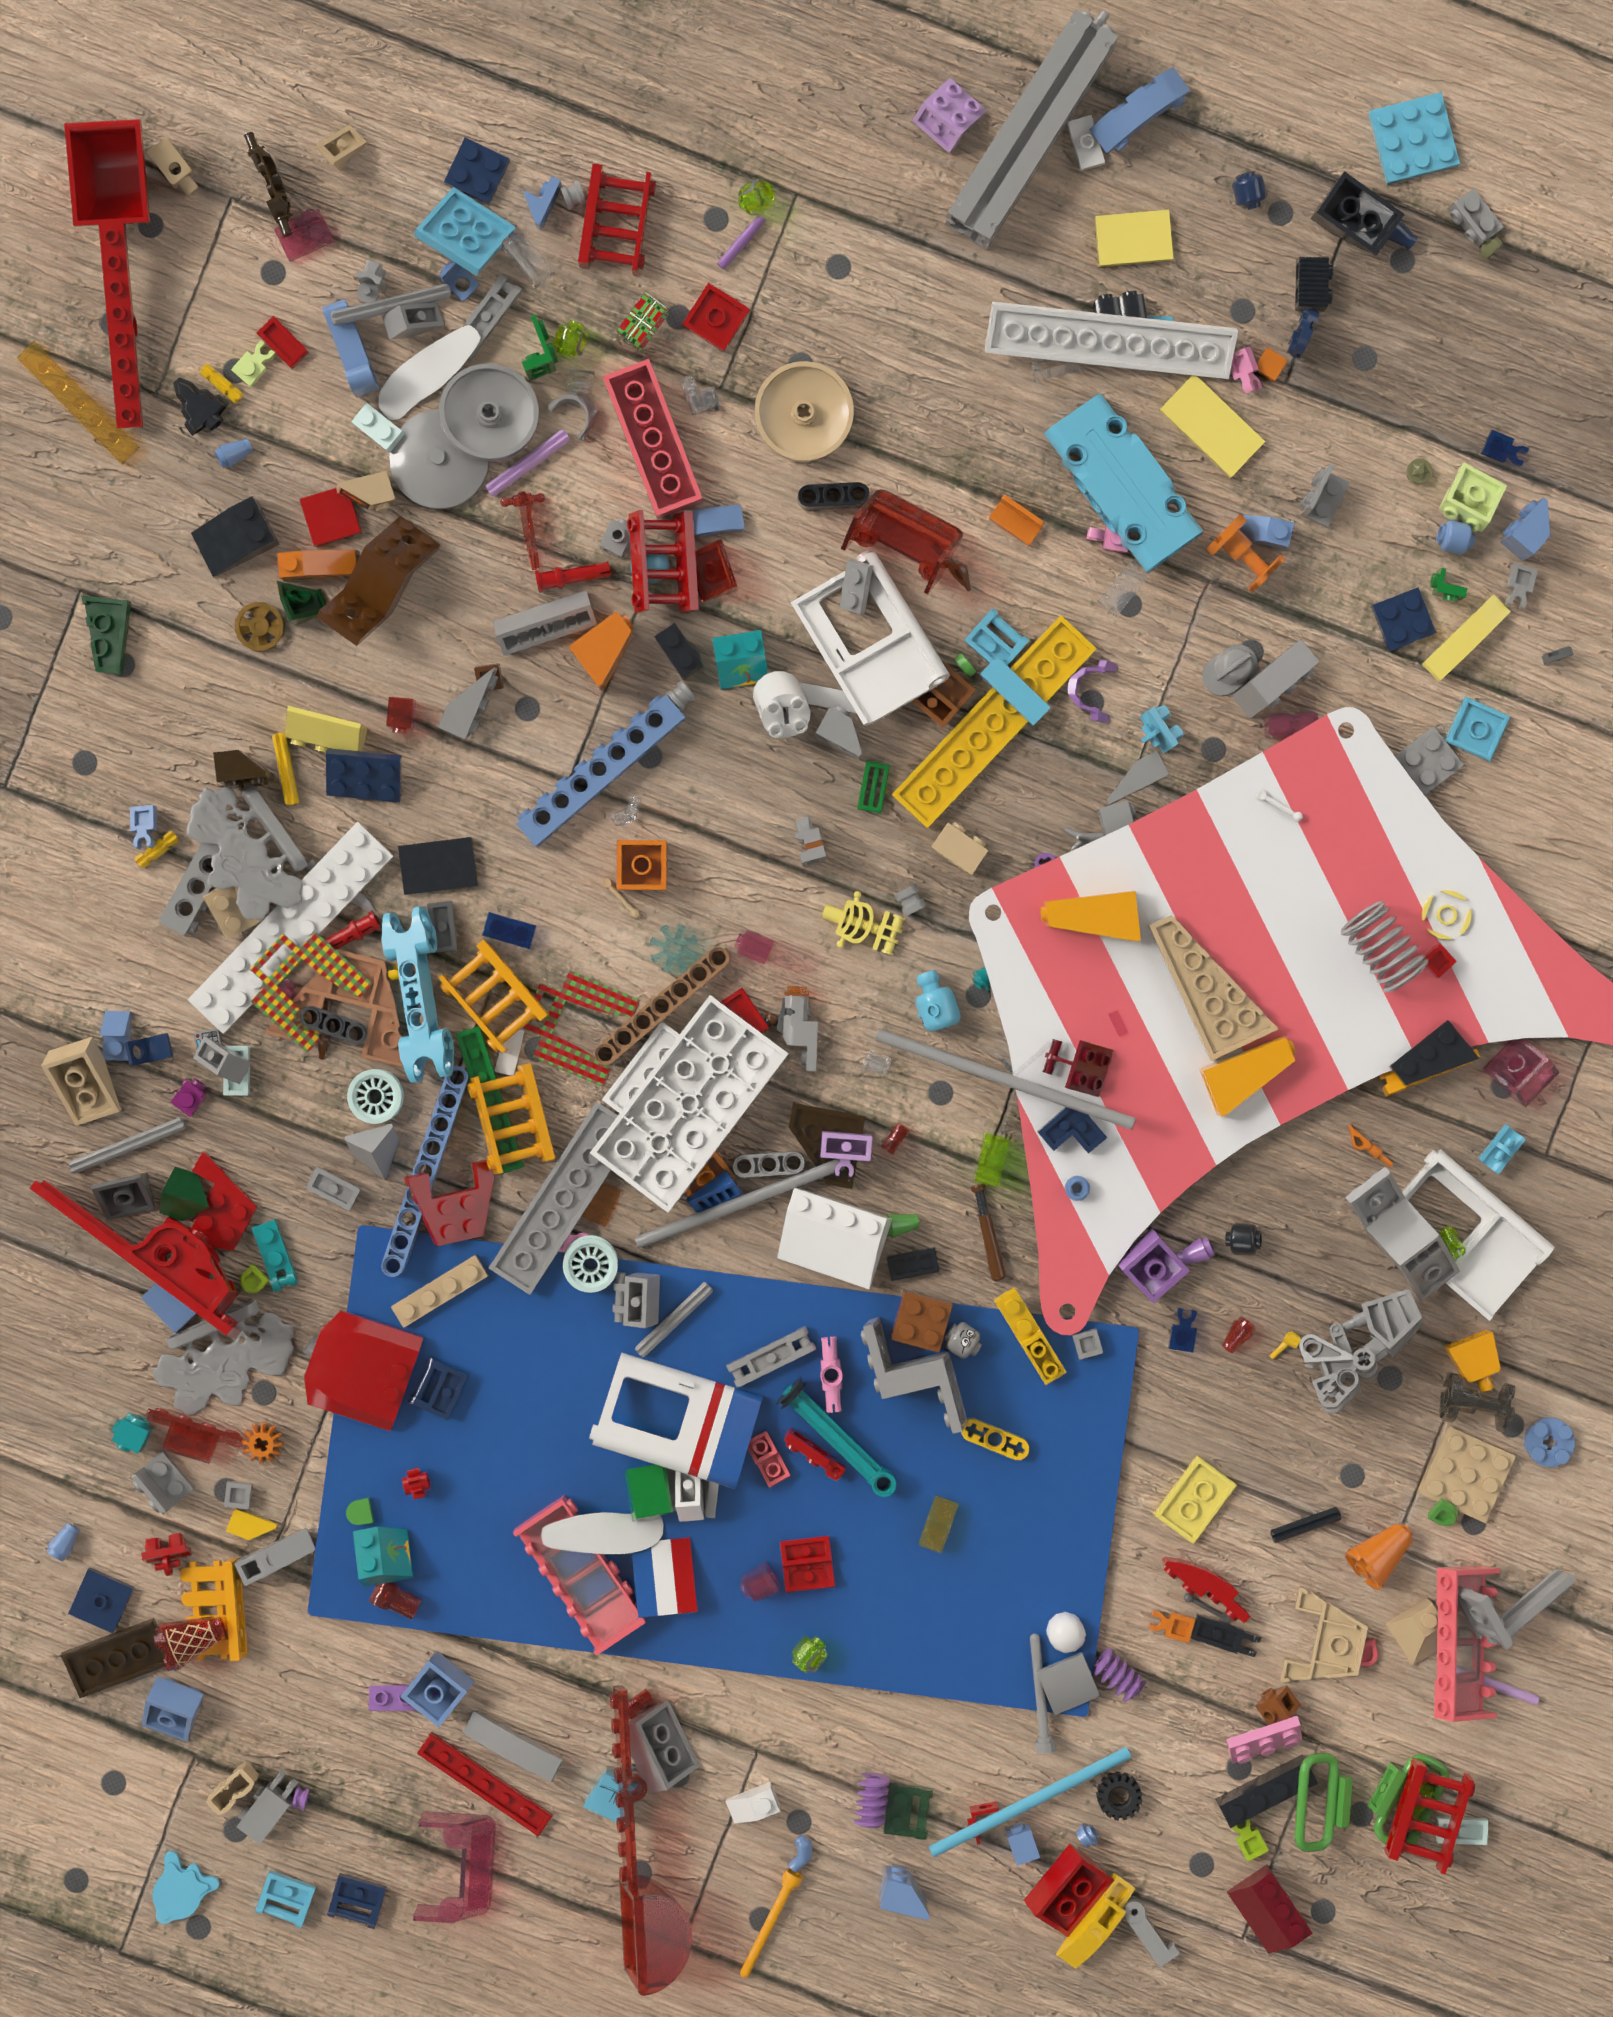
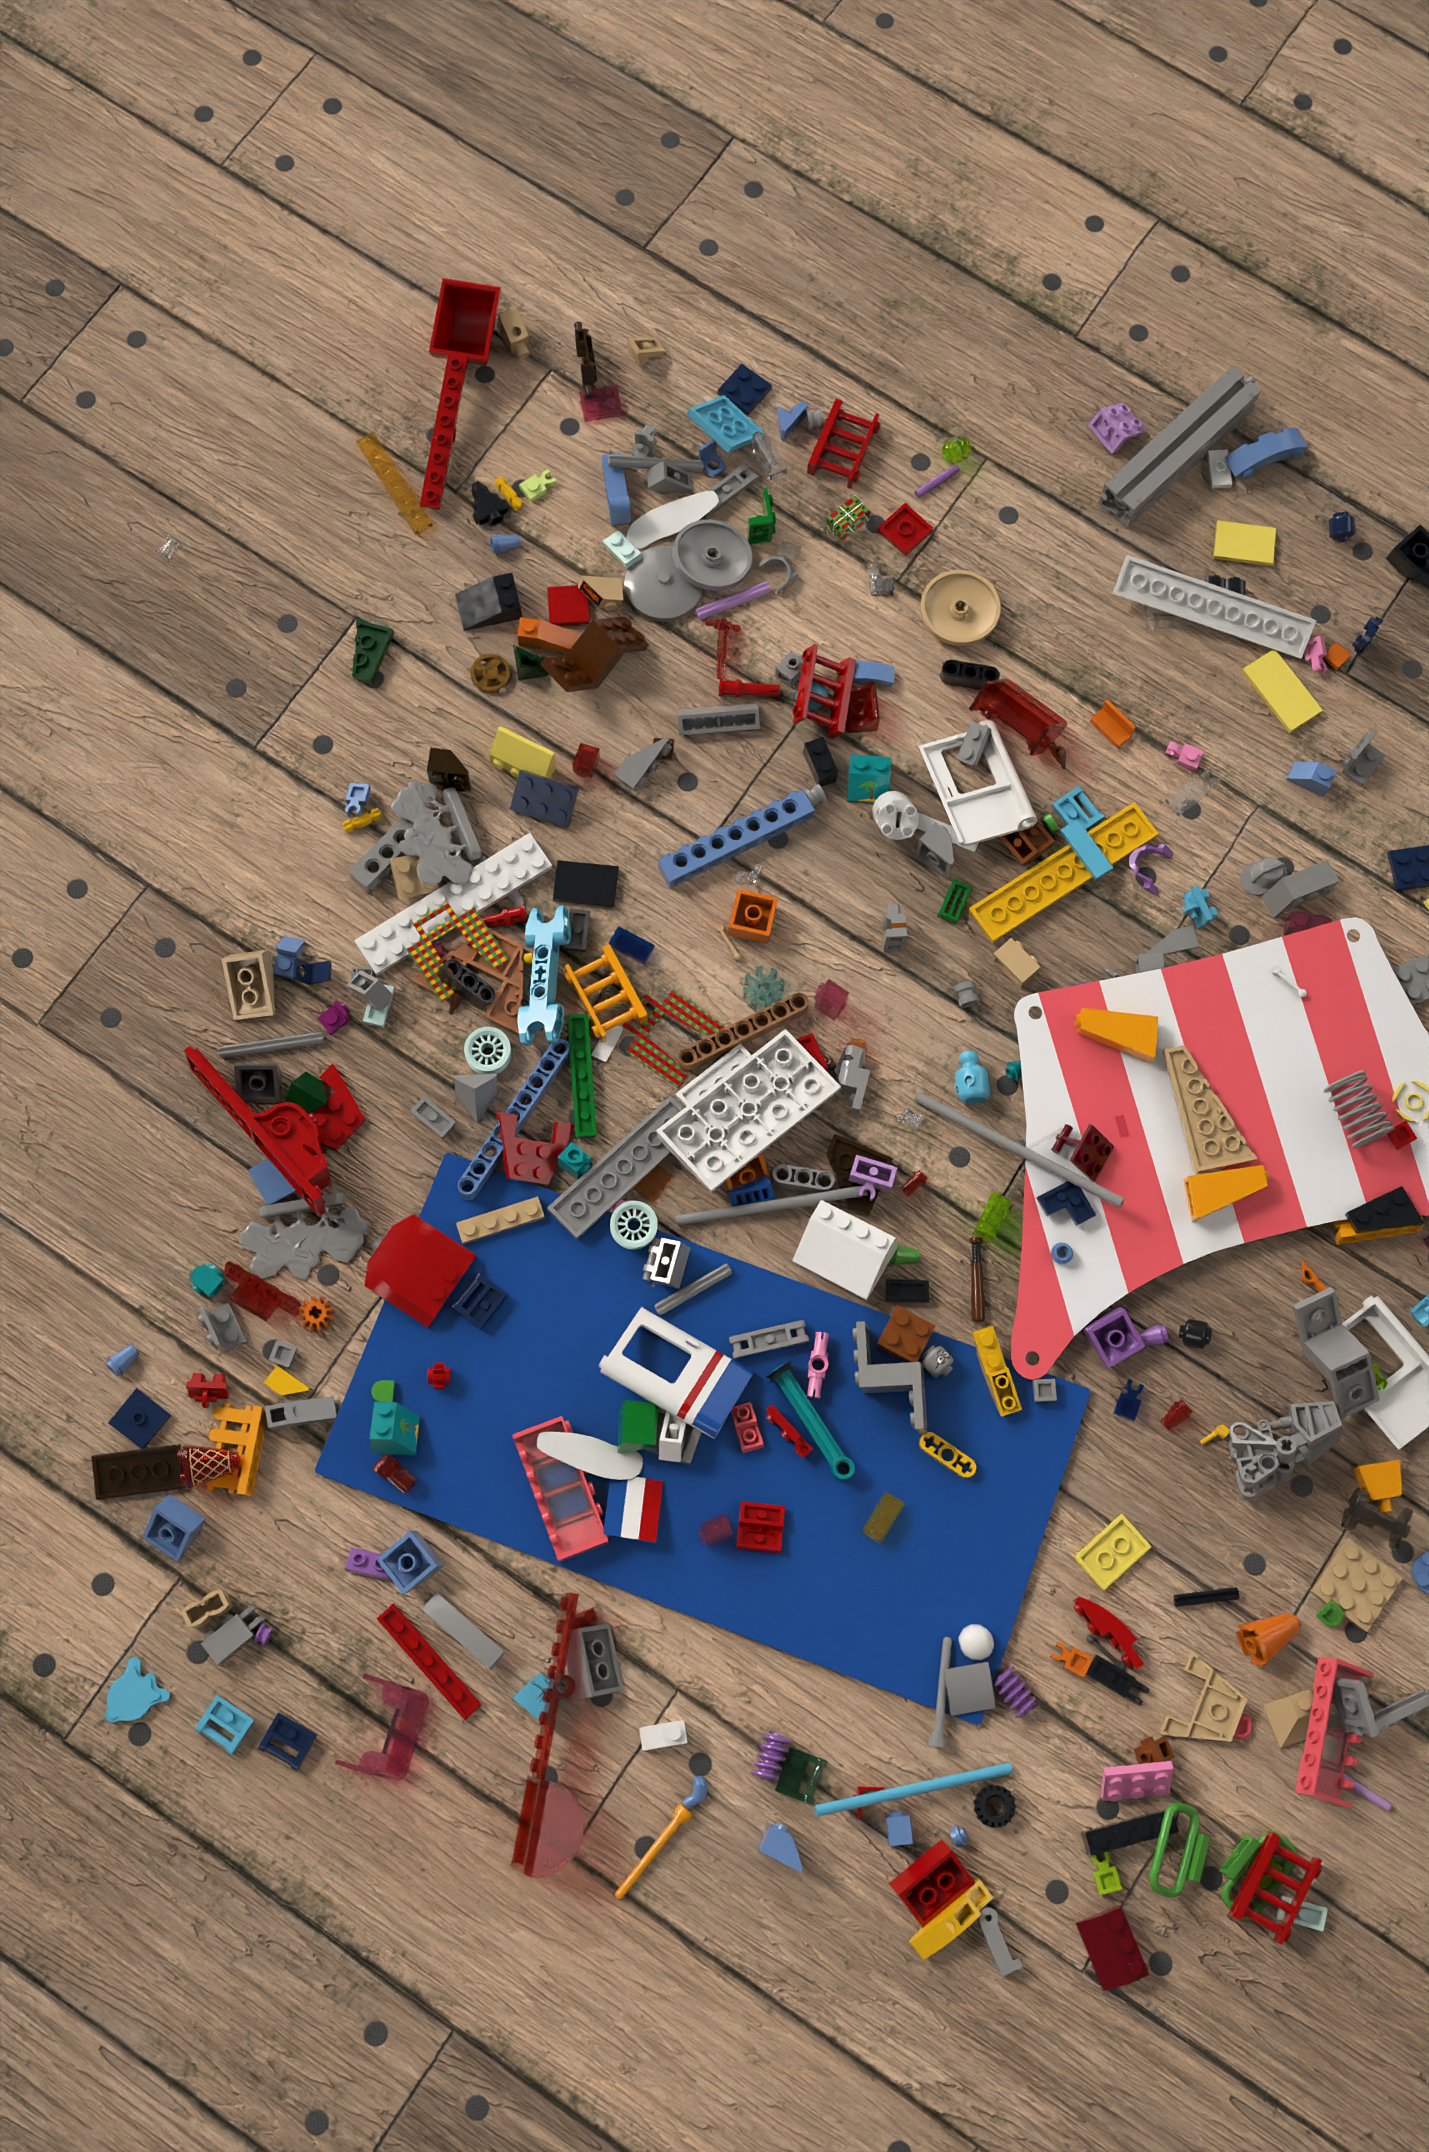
camera: 10 degrees right, 15 degrees down
(253, 1280) = (346, 1178): lime tile -> none
(275, 1254) = (369, 1160): teal plate -> none
(282, 342) = (564, 474): red tile -> none
(285, 769) = (482, 783): yellow axle -> none
(507, 1204) = (574, 1161): none -> teal brick
(536, 1124) = (615, 1082): light orange fence -> none
(570, 339) = (788, 518): clear neon green head -> none
(604, 647) = (761, 744): orange slope -> none
(653, 439) = (836, 601): coral brick -> none
(809, 1654) = (745, 1606): clear neon green head -> none
(840, 916) = (906, 995): light yellow torso -> none
(1123, 482) = (1204, 714): medium azure panel -> none
(1238, 546) = (1289, 780): orange piece -> none
(1313, 284) = (1380, 602): black brick -> none

